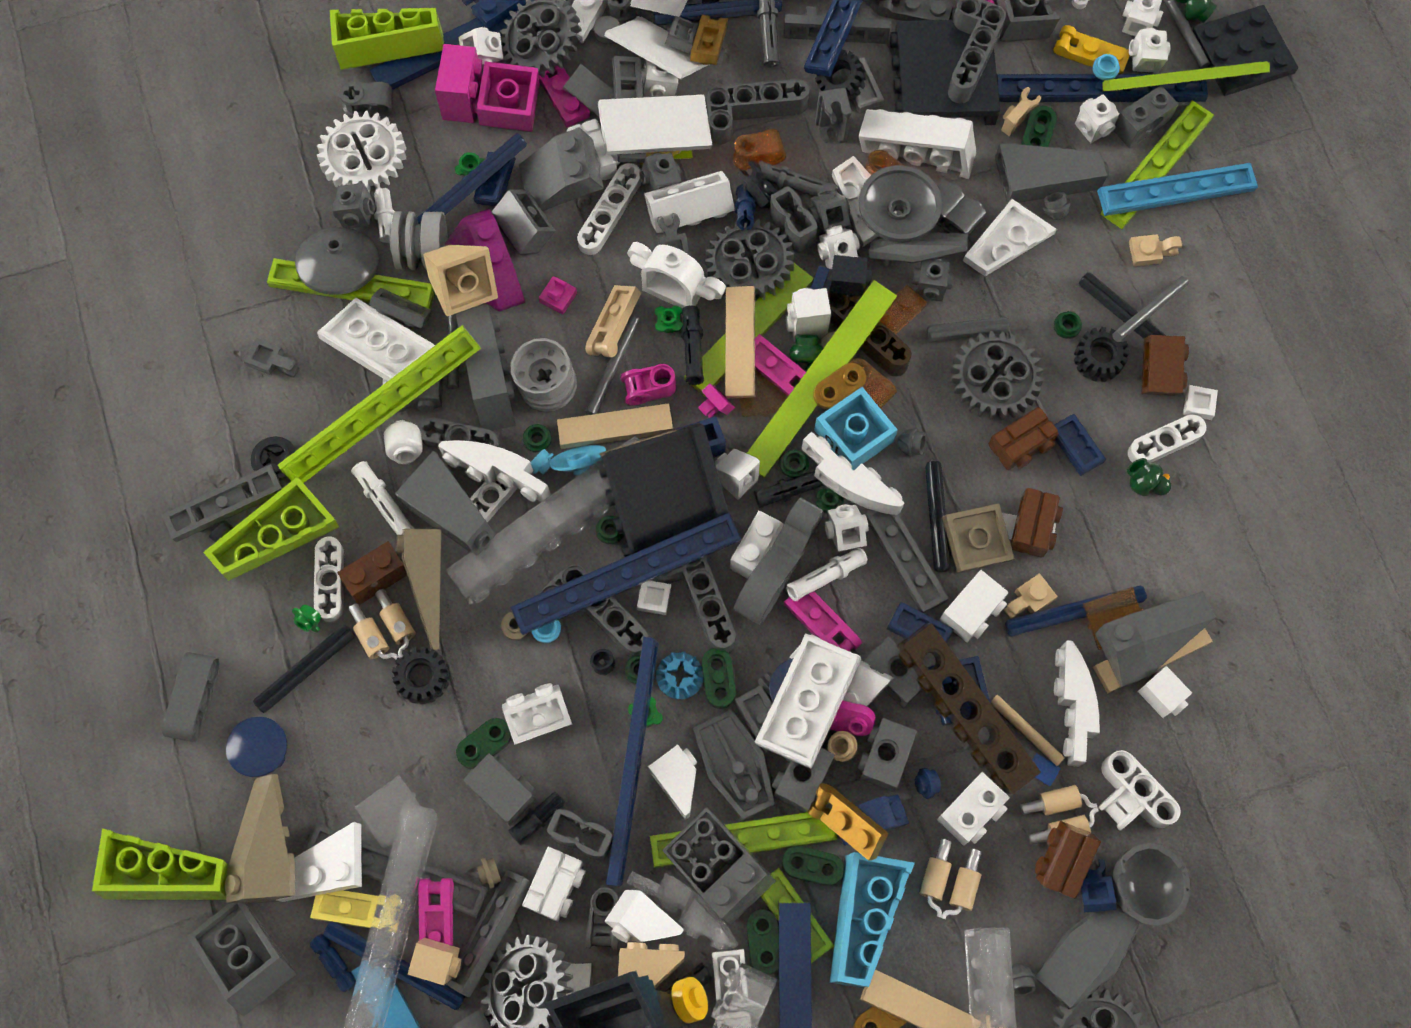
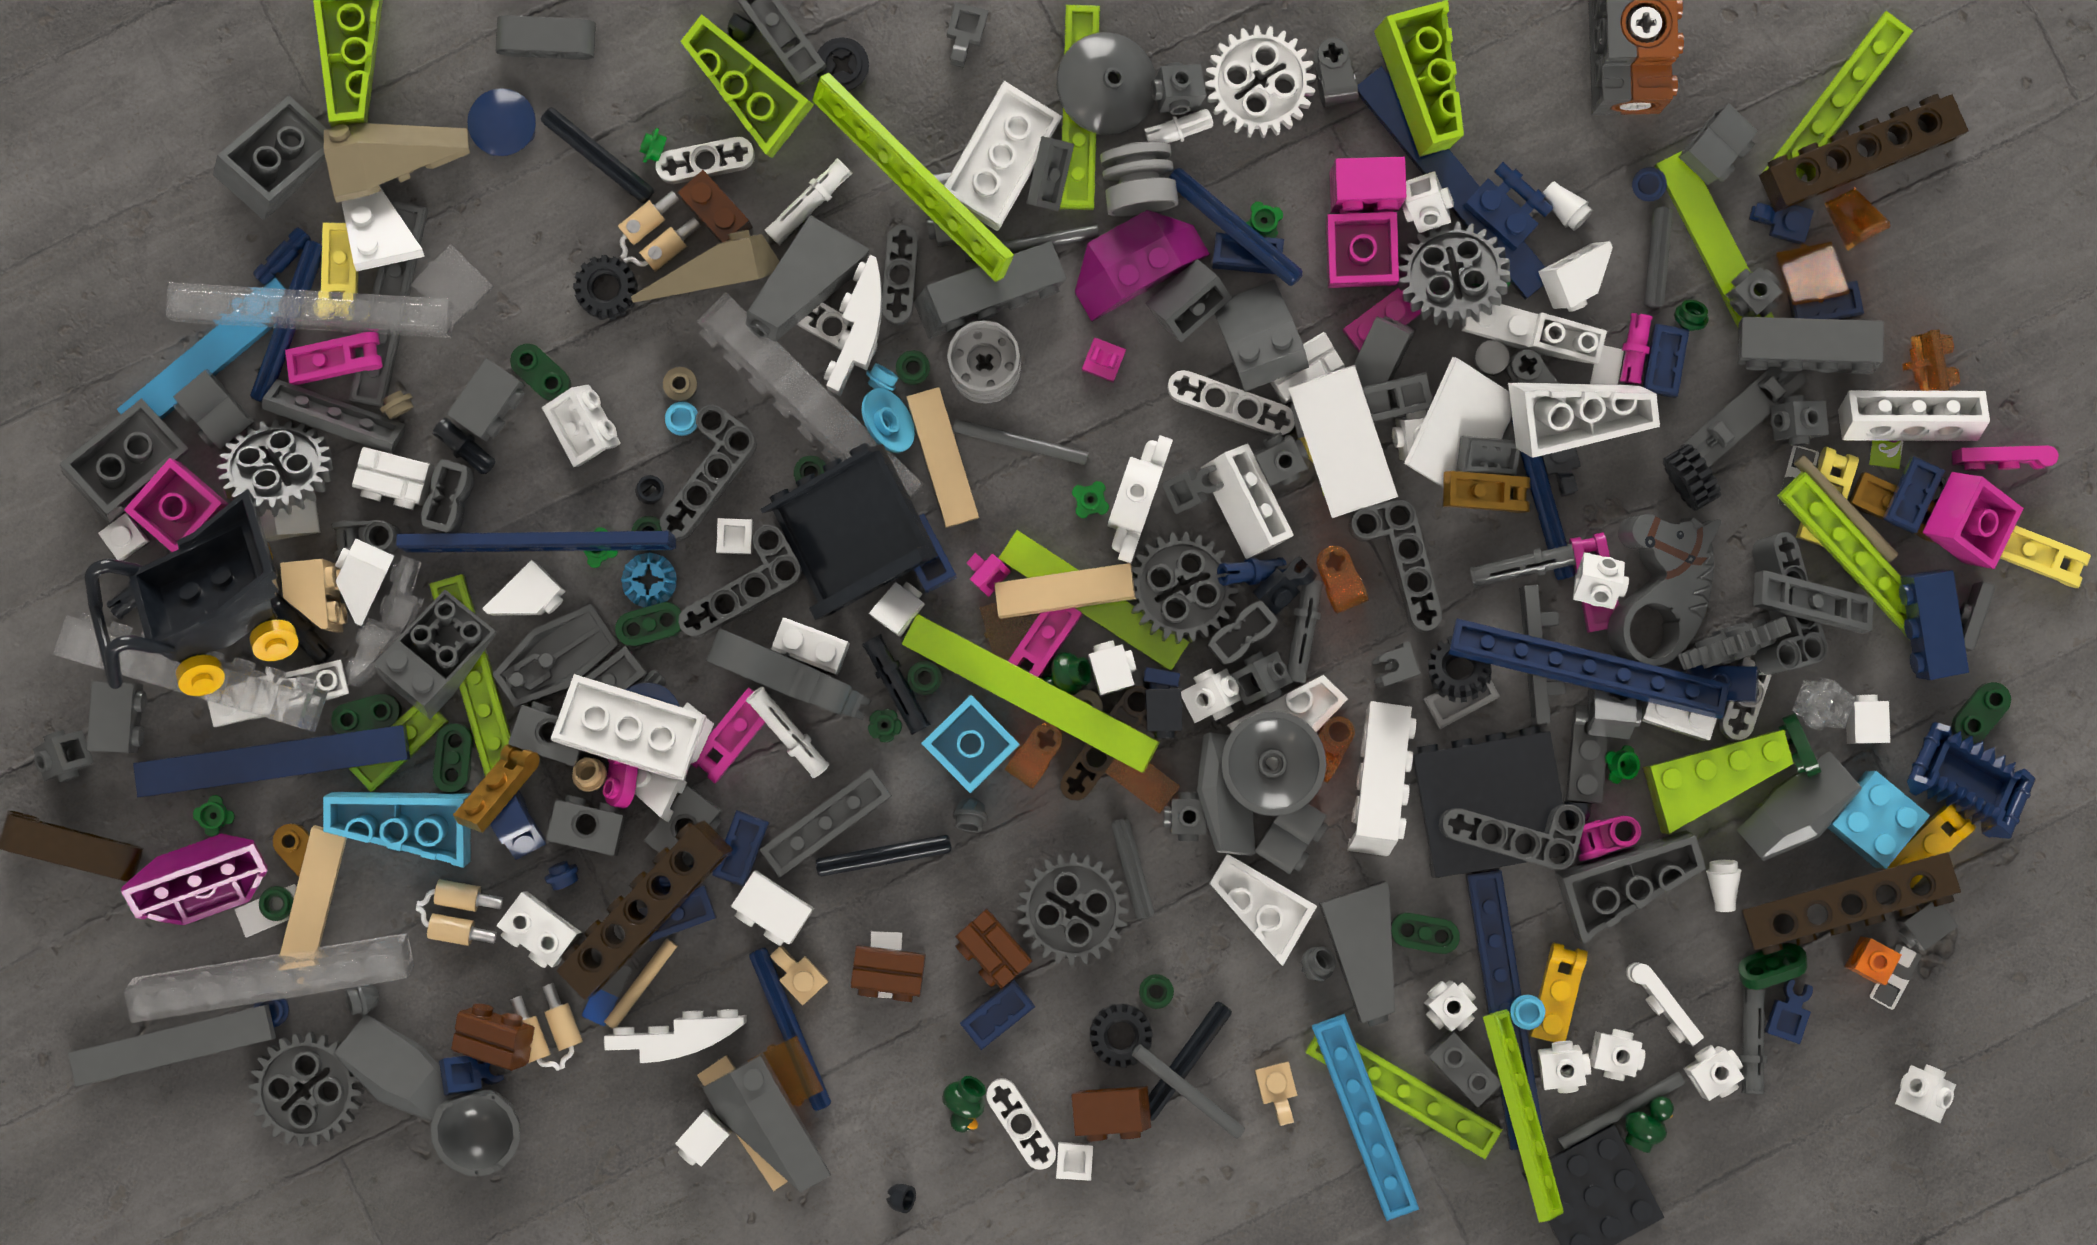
camera: 80 degrees right, 15 degrees up
(403, 442) = (881, 211): white head -> none
(435, 961) = (290, 365): tan brick -> none
(461, 276) = (1089, 239): tan slope -> none
(612, 321) = (1074, 432): tan plate -> none
(625, 573) = (747, 500): dark blue tile -> none
(647, 384) = (996, 483): dark pink piece -> none
(692, 336) = (1066, 532): black pin -> none
(839, 385) = (1018, 716): pearl gold plate -> none
(847, 527) = (853, 745): white brick -> none
(857, 486) = (895, 756): white slope -> none
(978, 538) = (860, 905): dark tan plate -> none
(1016, 115) = (1441, 899): tan plate -> none
(1126, 804) = (569, 1105): white piece -> none
(1222, 541) = (901, 1197): none -> black hinge

